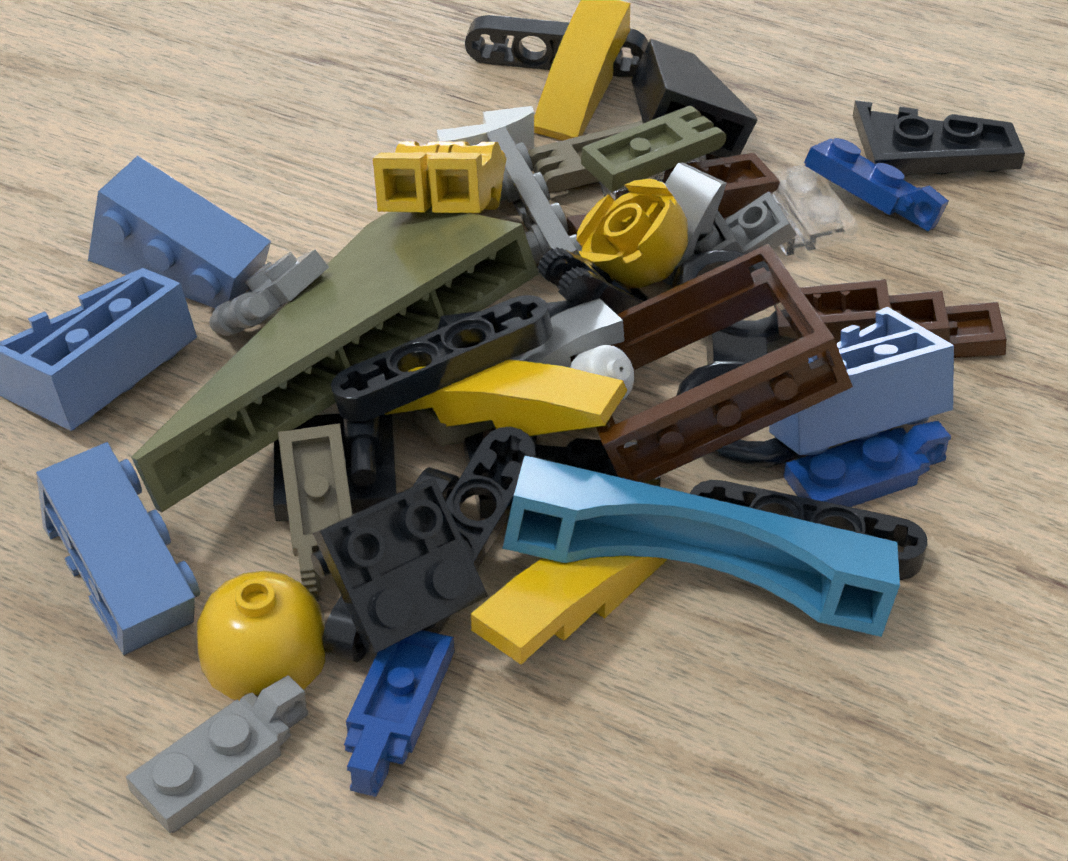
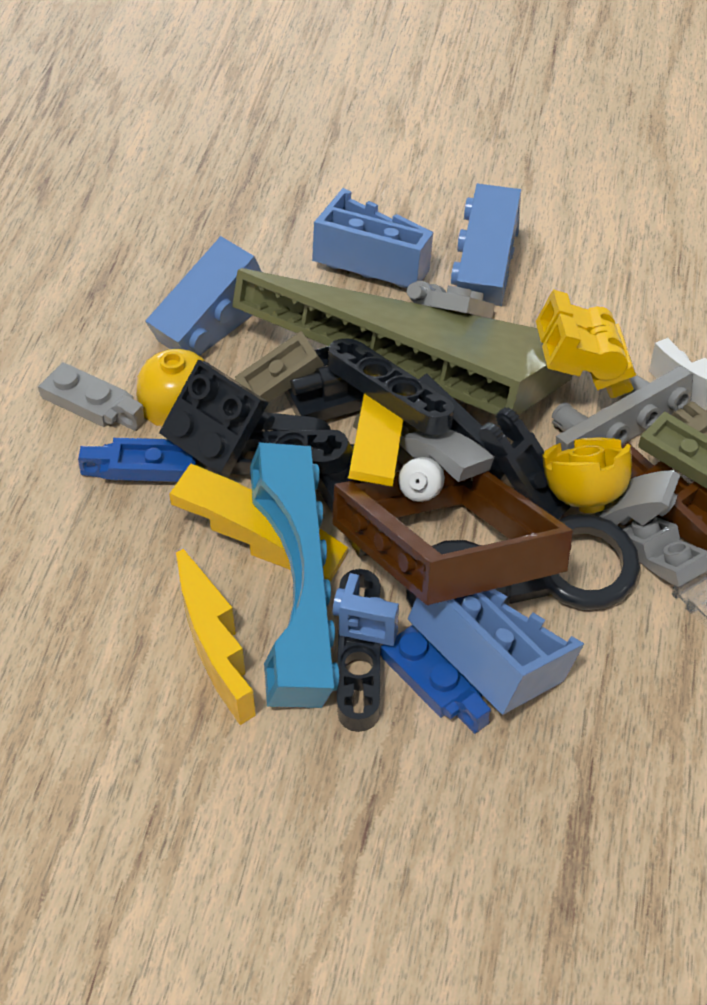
camera: 75 degrees right, 5 degrees up
(736, 671) = (213, 631): none -> yellow slope
(793, 485) = (365, 617): none -> medium blue bracket
(971, 328) = (605, 670): reddish brown slope -> none

